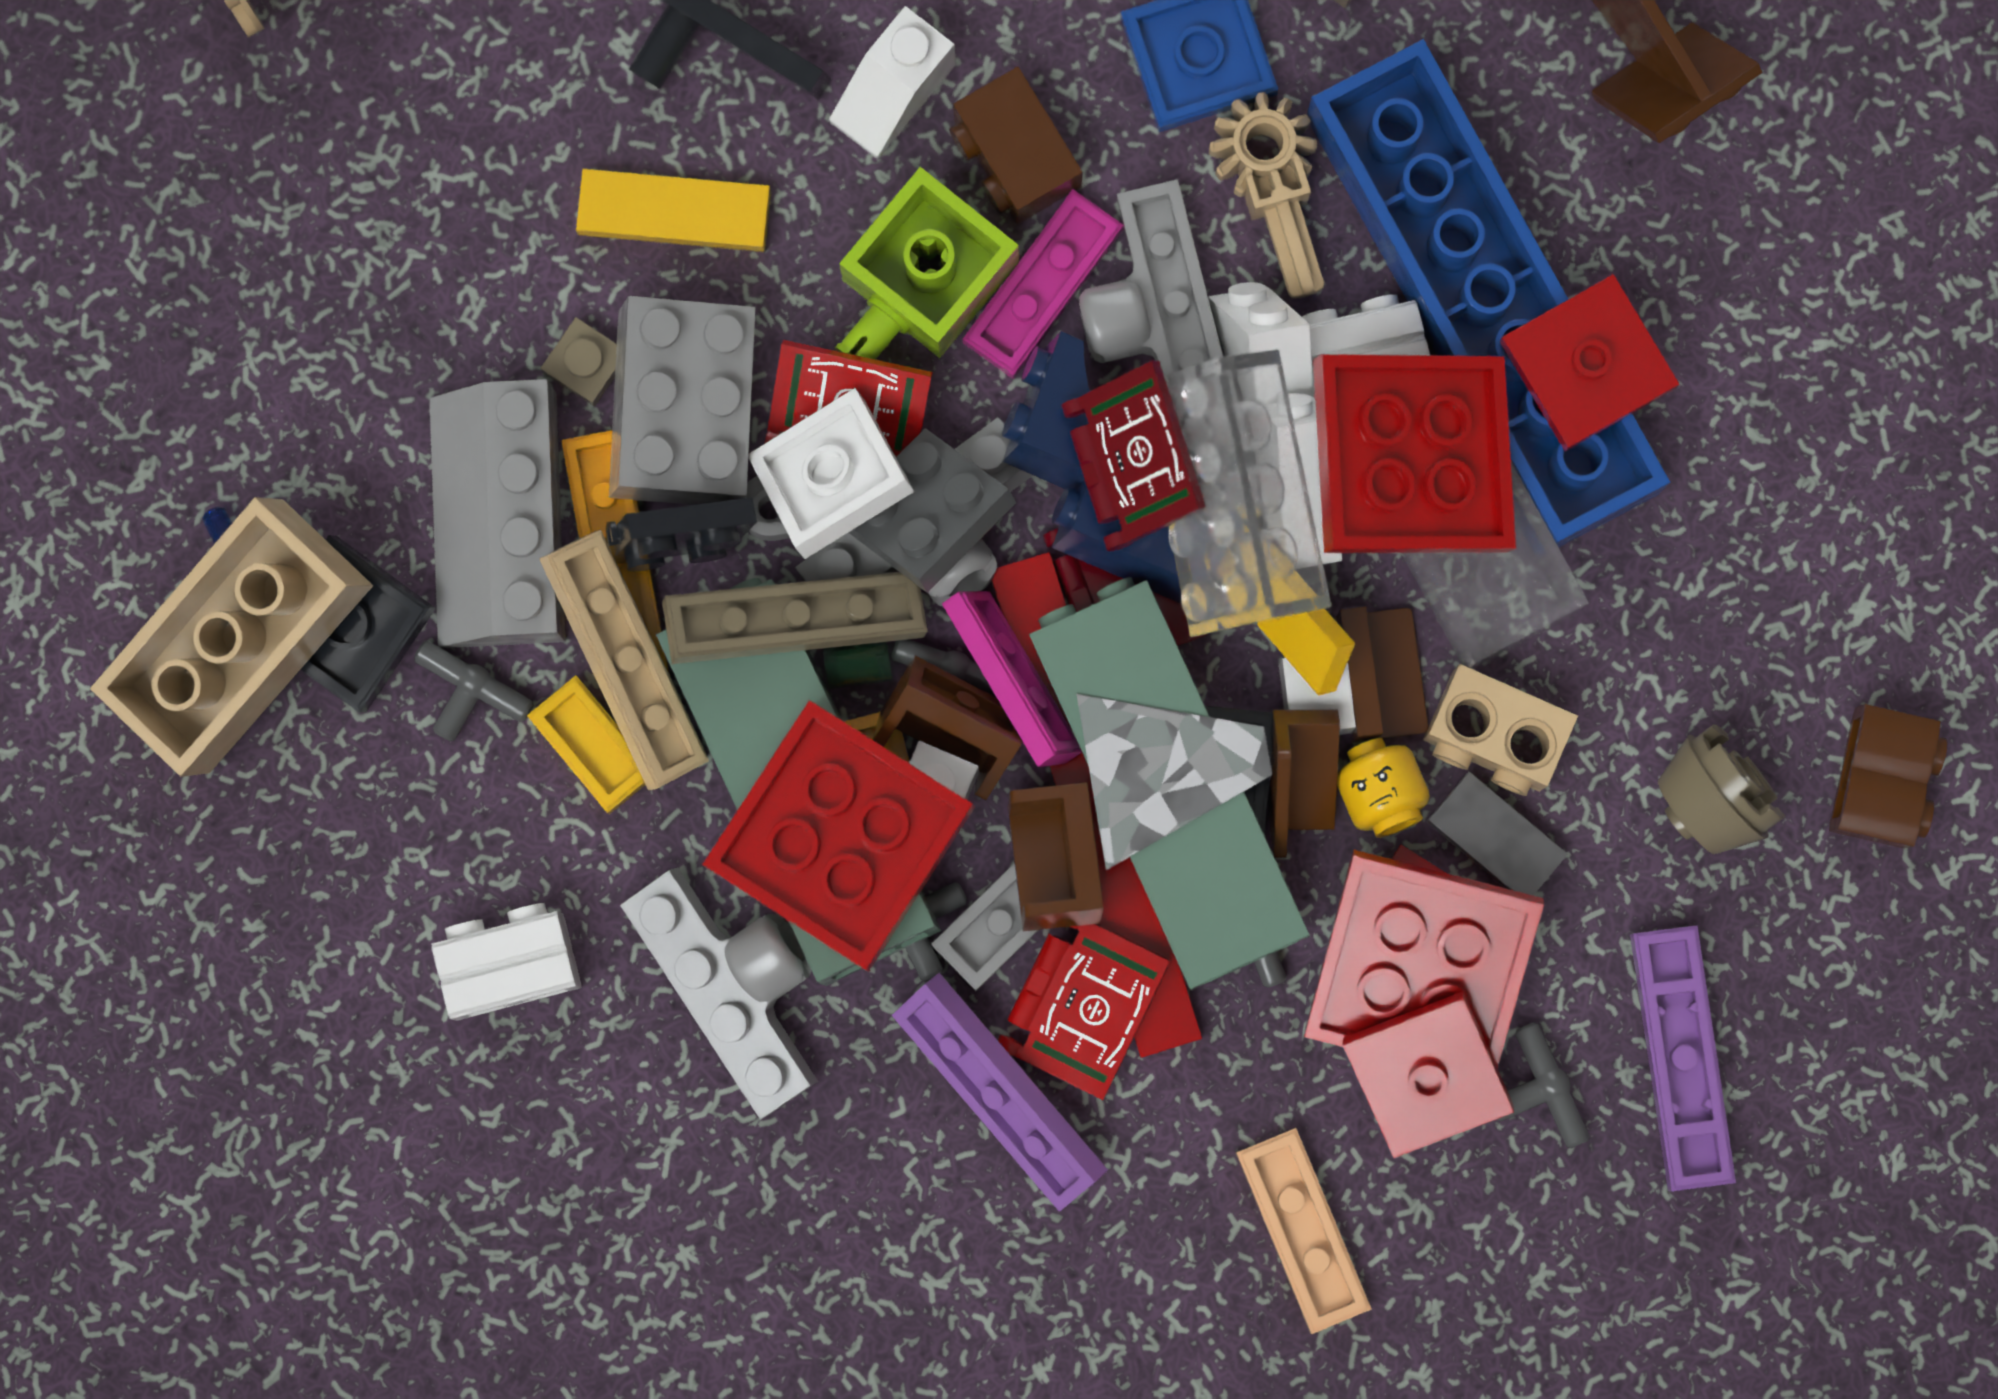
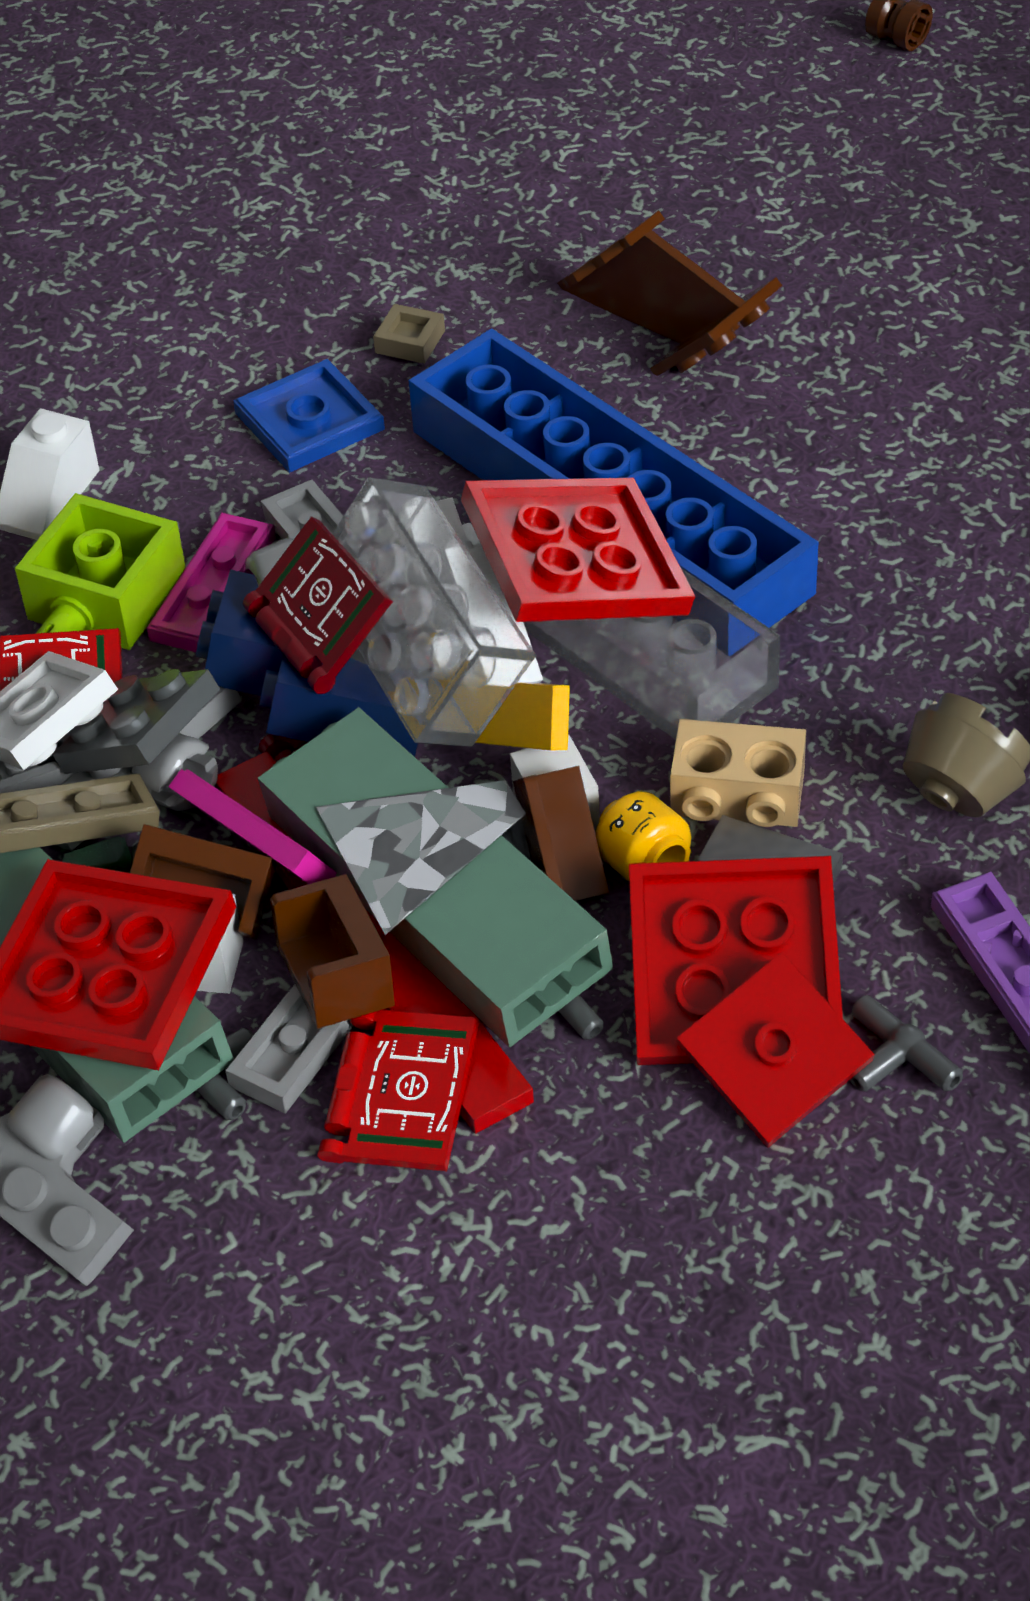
camera: 15 degrees left, 35 degrees down
(999, 1092) = (334, 1185): medium lavender plate -> none
(1015, 146) = (166, 483): reddish brown brick -> none
(1273, 186) = (385, 447): tan gear -> none
(1303, 1231) = (699, 1239): light nougat tile -> none
(1384, 673) = (613, 759): reddish brown panel -> none
(1589, 362) = (712, 476): red plate -> none

